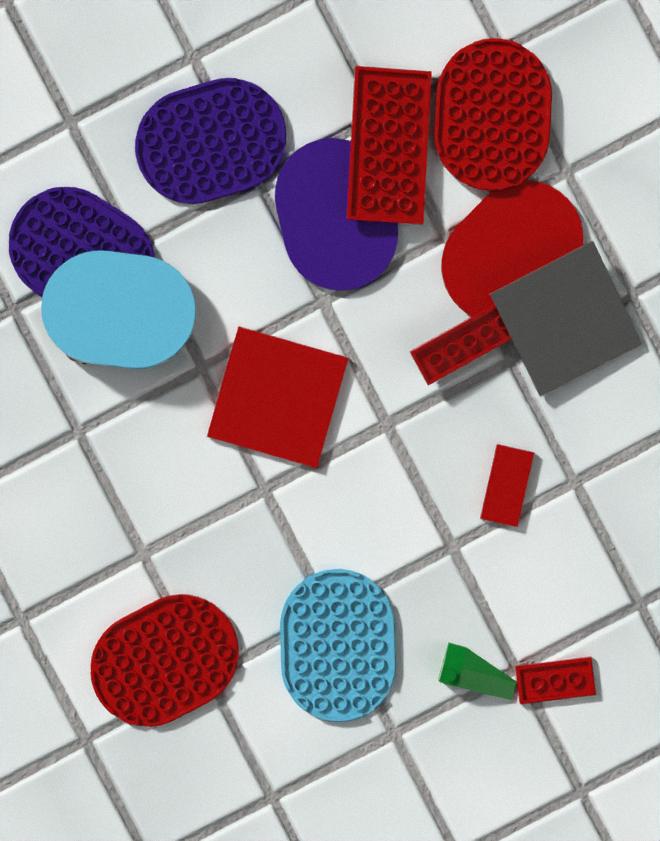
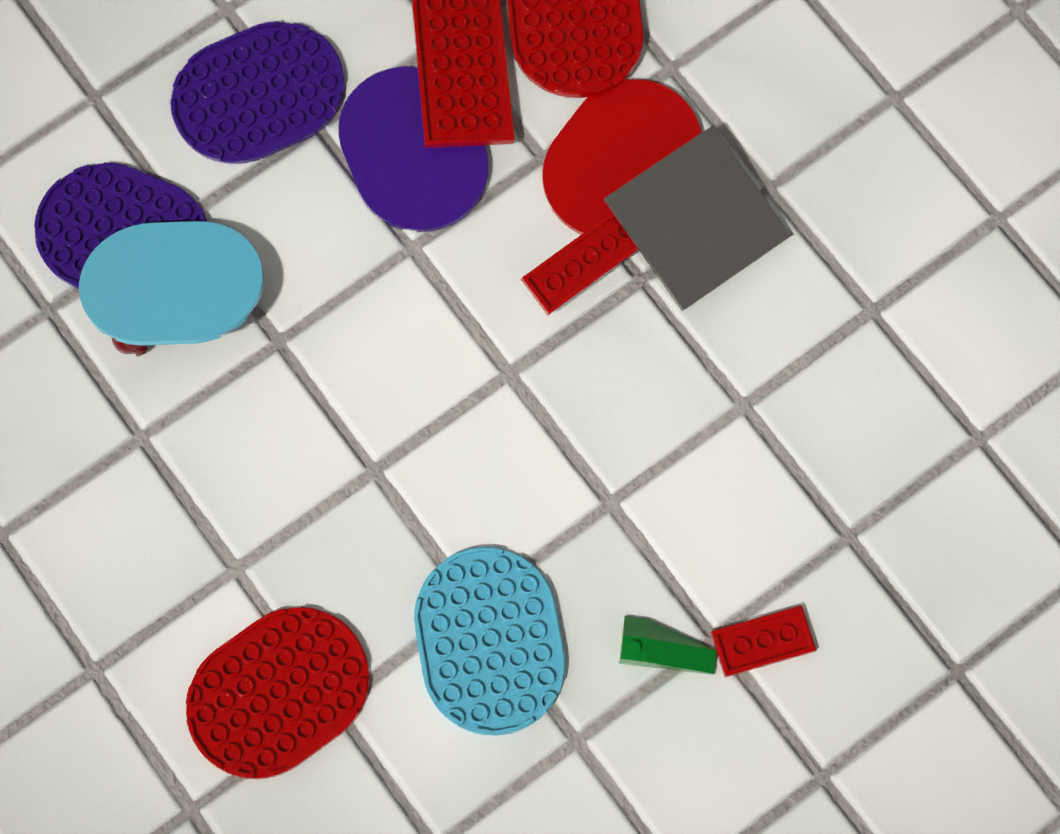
camera: 10 degrees left, 15 degrees down
(277, 397) = (373, 360): red tile -> none
(507, 485) = (662, 419): red tile -> none

